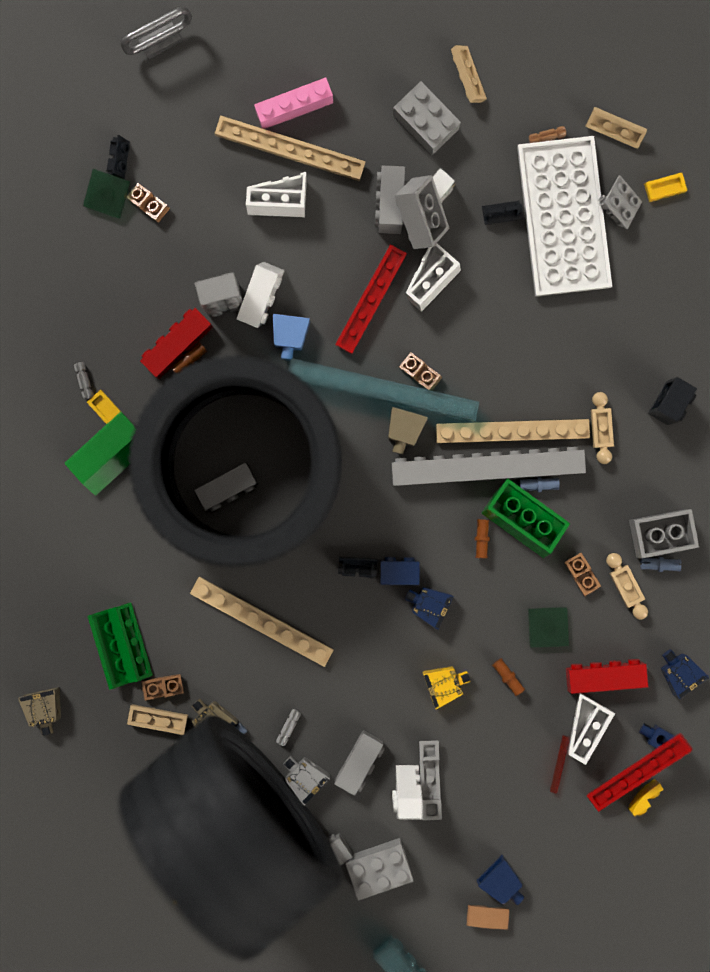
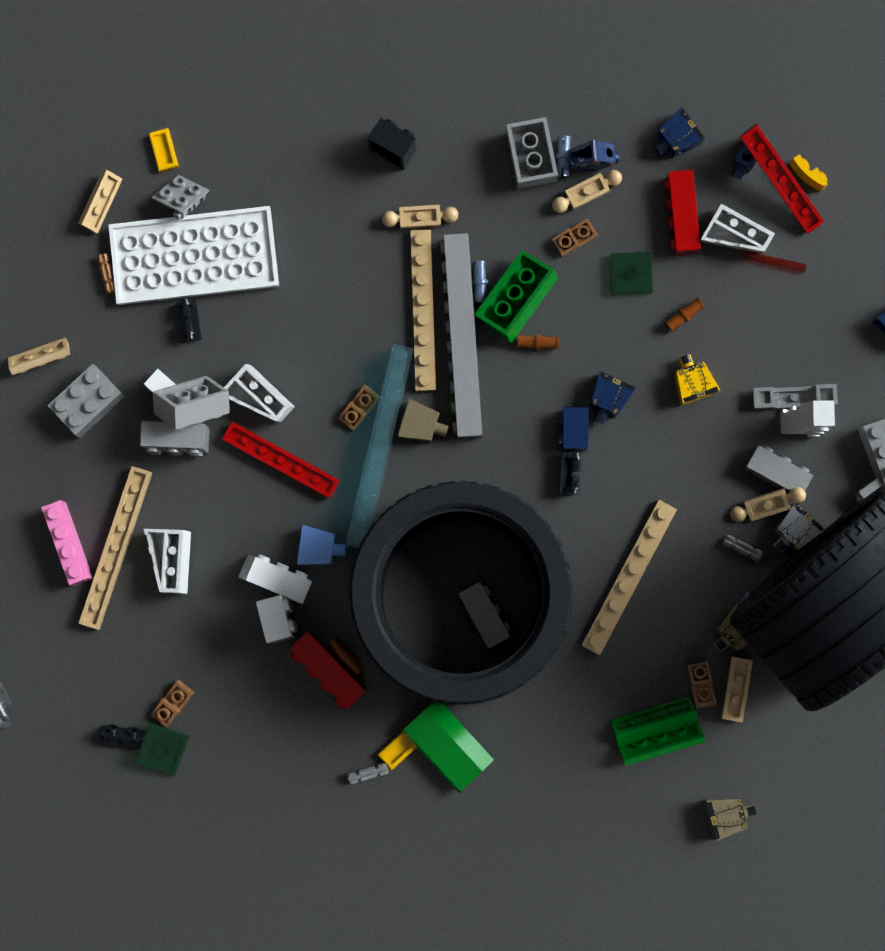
camera: 85 degrees left, 5 degrees down
(328, 752) = (768, 504): none -> tan plate
(664, 600) = (601, 154): none -> dark blue torso

